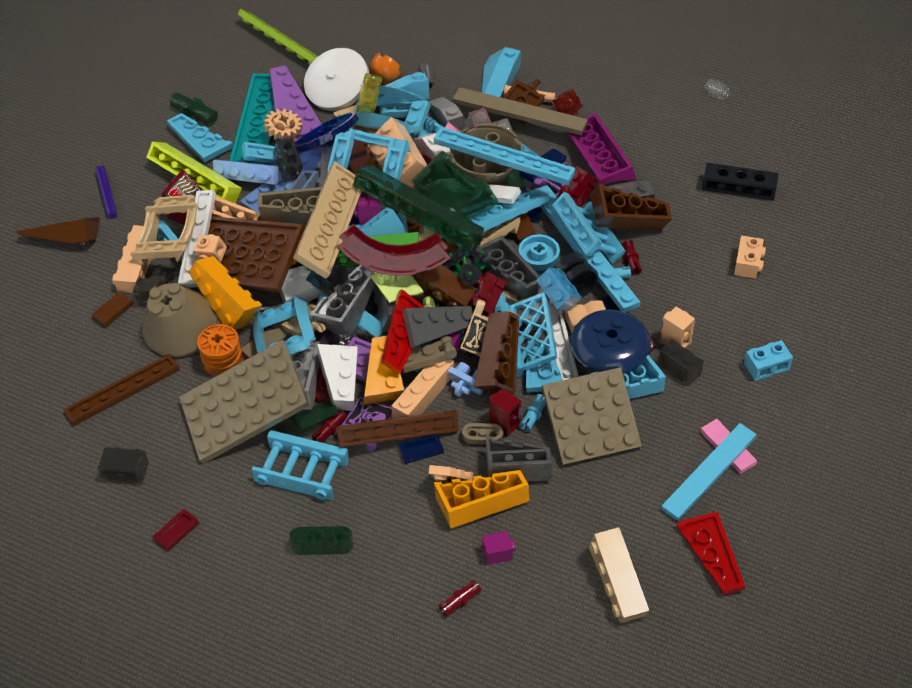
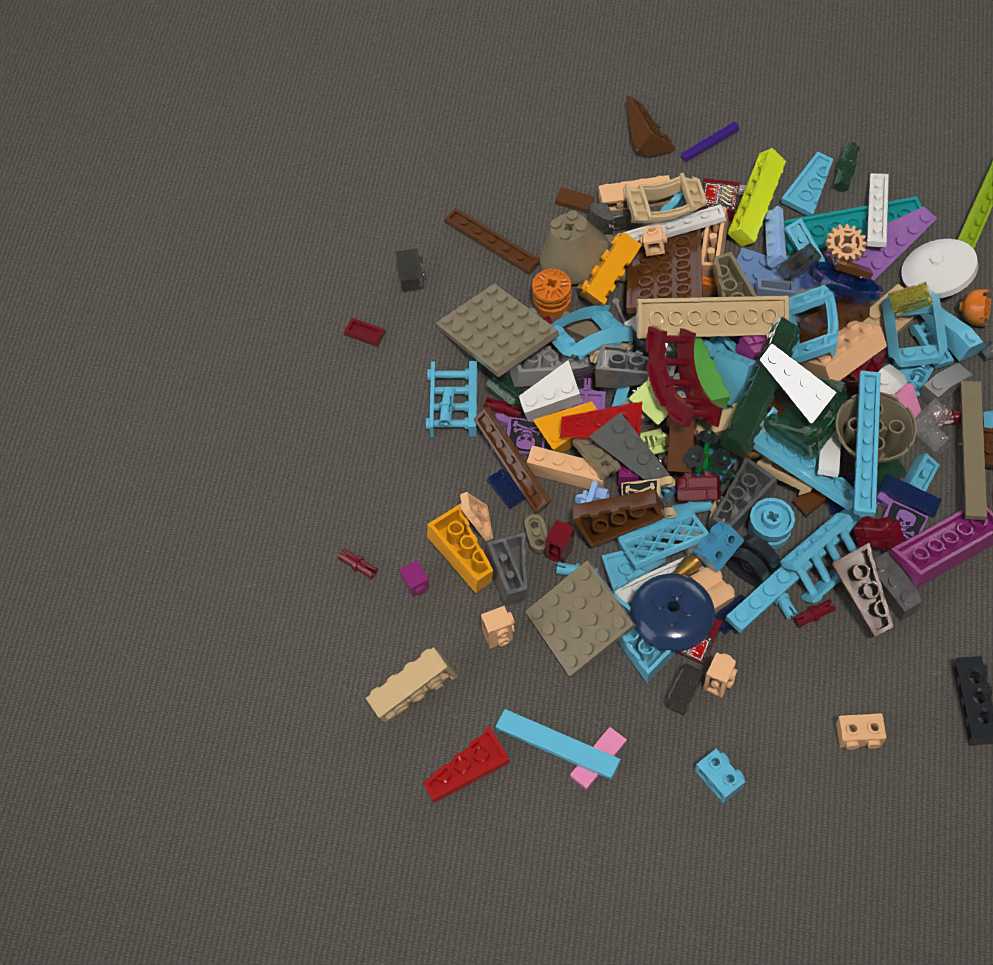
camera: 75 degrees right, 10 degrees up
(255, 98) = (877, 210): none -> white tile
(310, 128) = (852, 268): none -> reddish brown tile
(312, 467) = (447, 406): none -> medium azure pin
(330, 535) = (384, 446): clear green beam -> none
(429, 178) = (800, 385): none -> wing
(562, 325) = (688, 565): none -> pearl gold cone
(580, 484) = (497, 627): none -> light nougat brick

